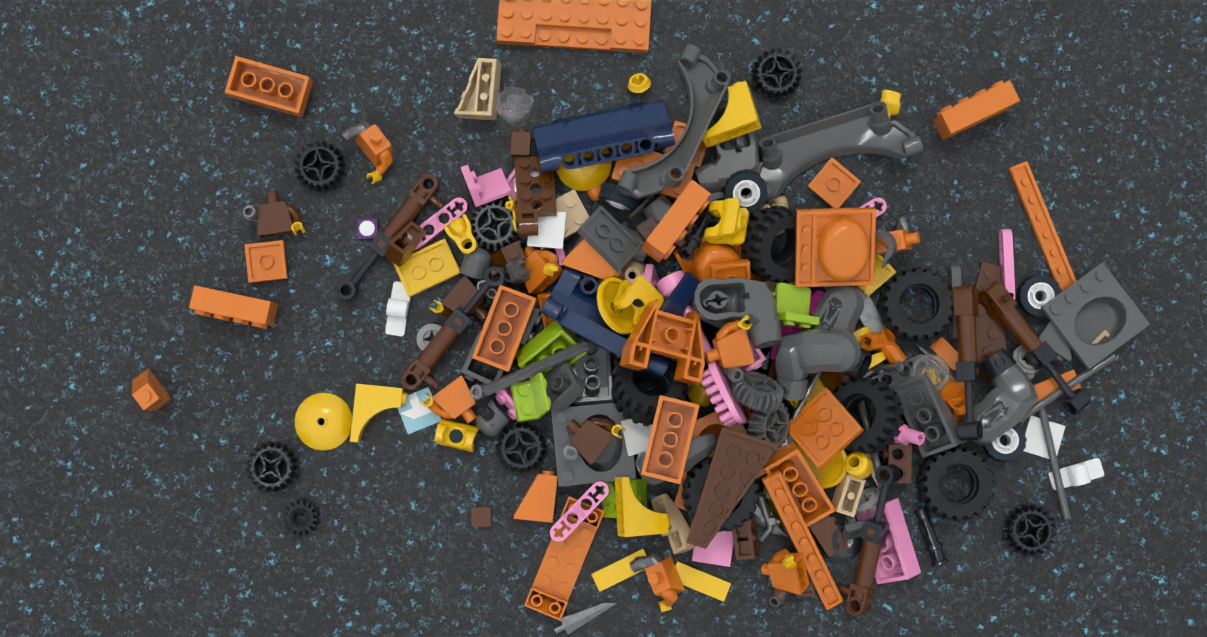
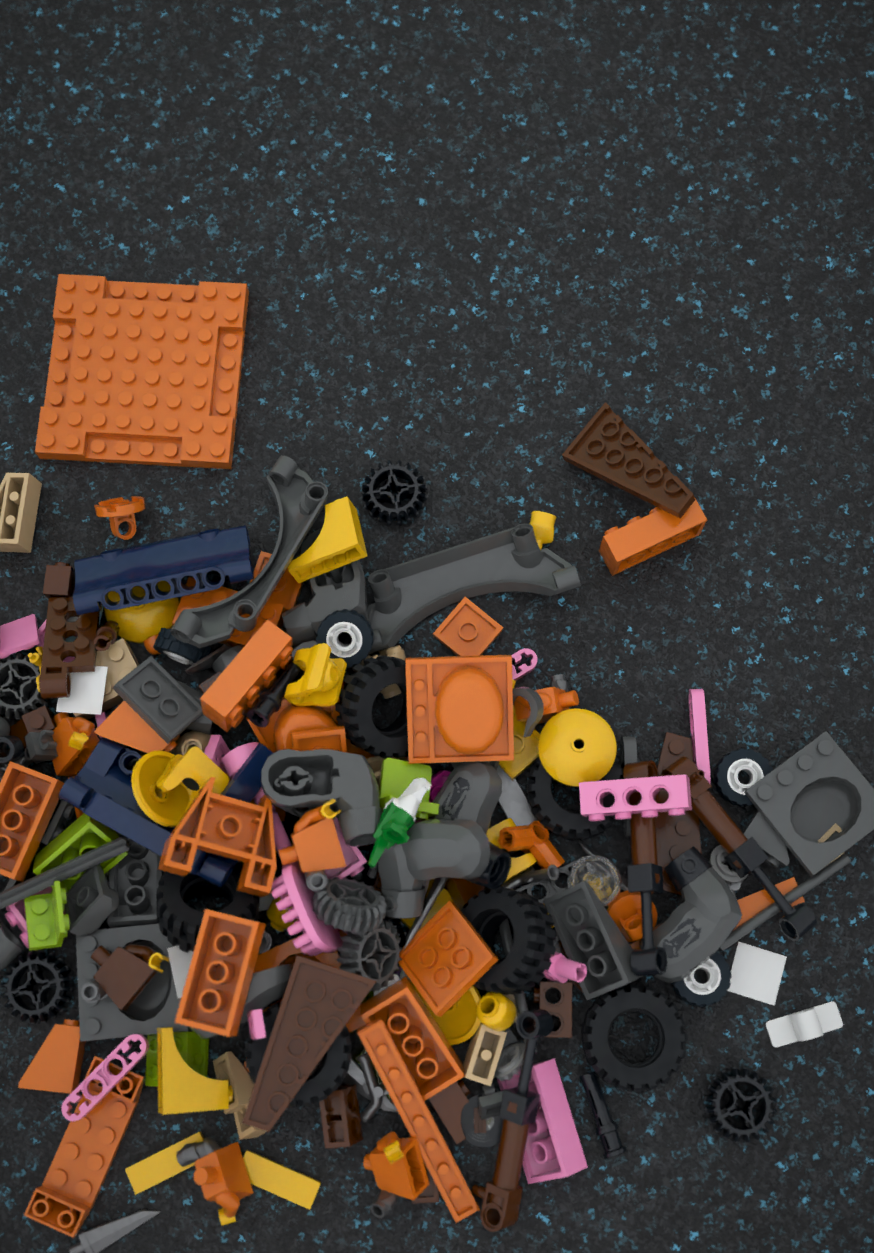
camera: 10 degrees right, 10 degrees down
(513, 104) = (51, 532): clear cylinder -> none
(562, 187) = (106, 635): none -> reddish brown pin
(566, 88) = (120, 511): none -> orange tile
(639, 83) = (216, 505): yellow hat -> none
(694, 475) = (256, 1024): none -> bright pink tile
(718, 551) = (298, 1131): bright pink tile -> none
(793, 328) = (398, 818): none -> green animal
(906, 277) = (575, 765): none -> yellow dish
(932, 309) = (594, 792): none -> bright pink brick
(946, 351) = (617, 852): orange sticker -> none
(954, 49) = (622, 459): none -> reddish brown wing
(1042, 225) = (746, 684): orange tile -> none
(1054, 464) = (772, 1009): dark grey piece -> none

